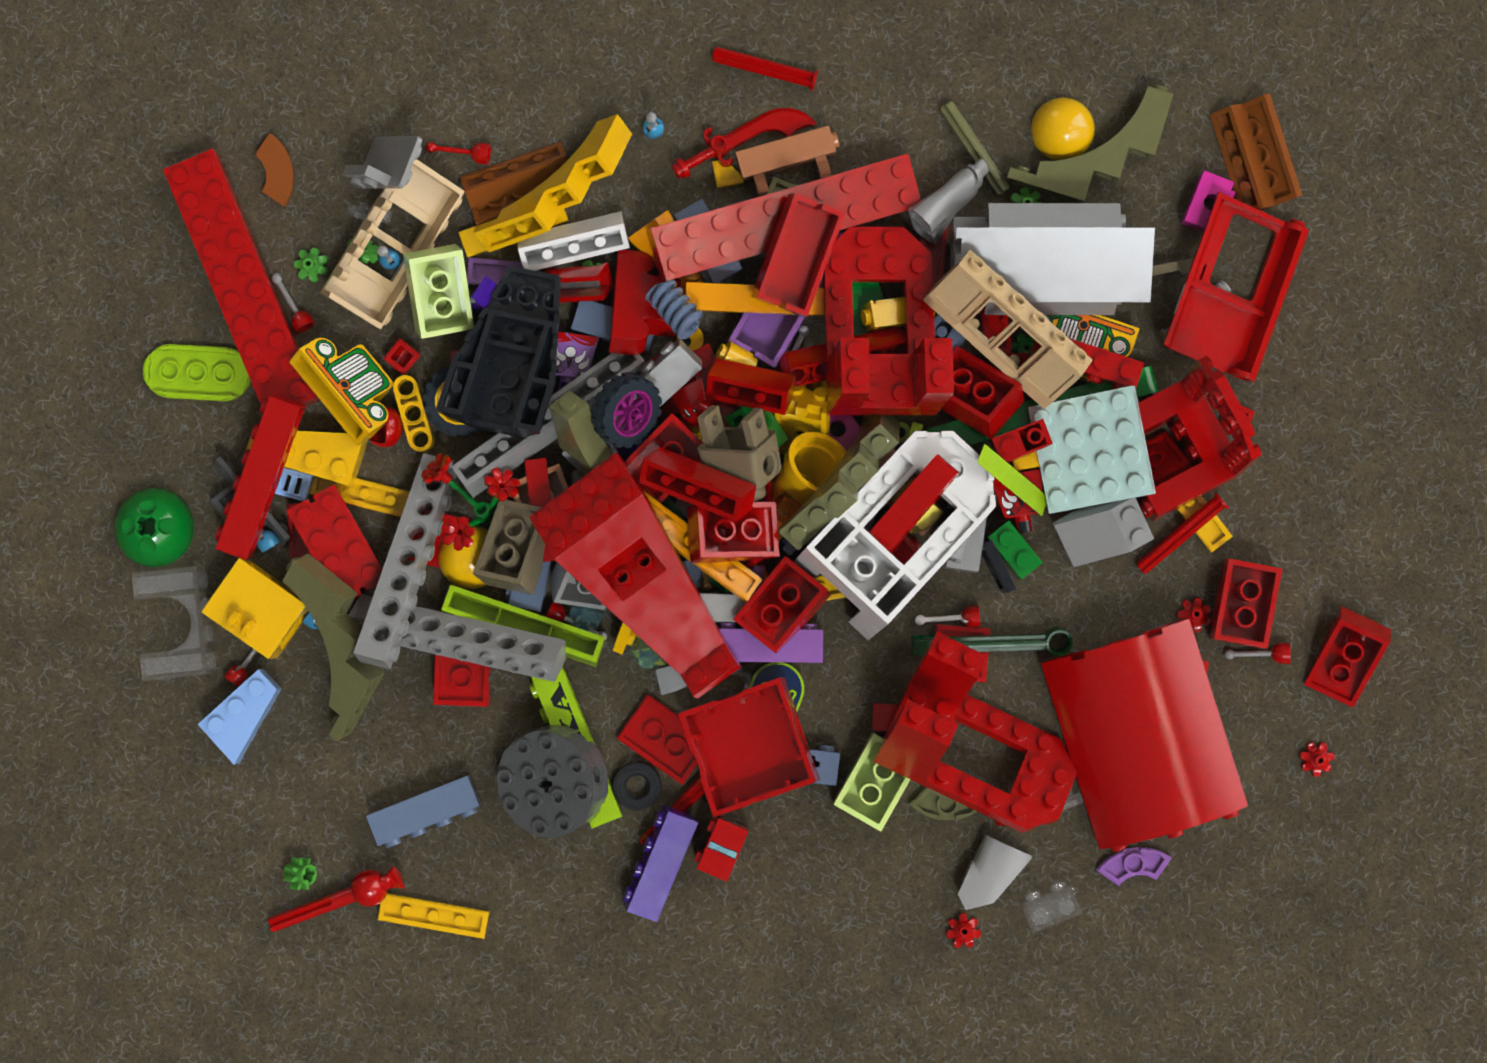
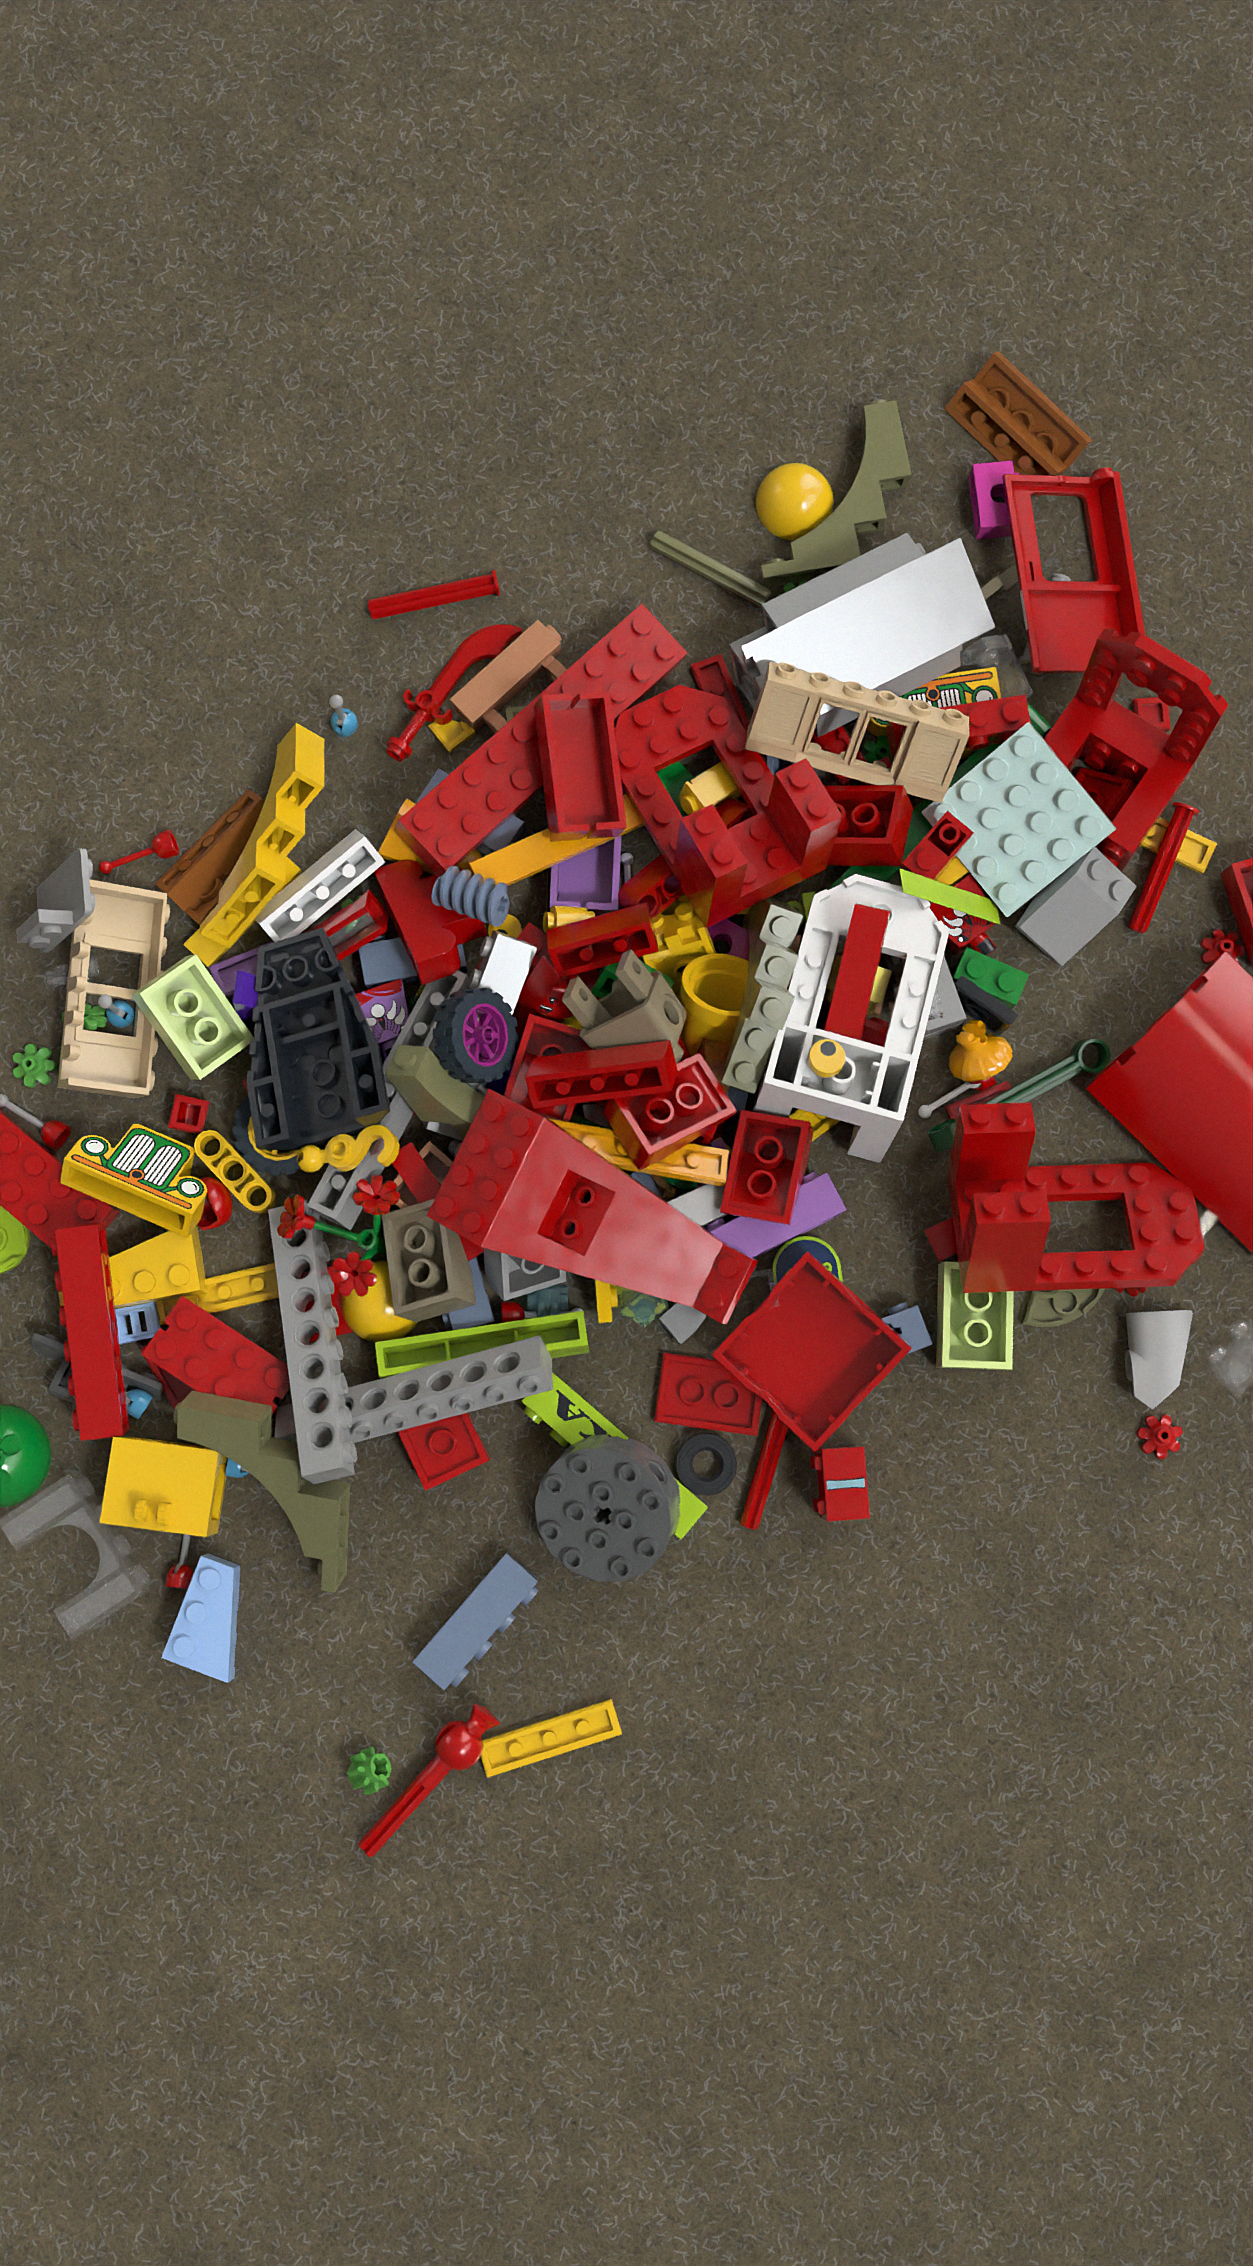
camera: 30 degrees left, 5 degrees down
(496, 444) = (346, 1153): none -> yellow piece
(659, 863) = (779, 1539): brick -> none
(858, 553) = (826, 1058): none -> yellow tile
(935, 211) = (705, 651): light grey piece -> none
(978, 600) = (978, 1053): none -> light orange hair
(1148, 320) = (999, 653): none -> clear bracket

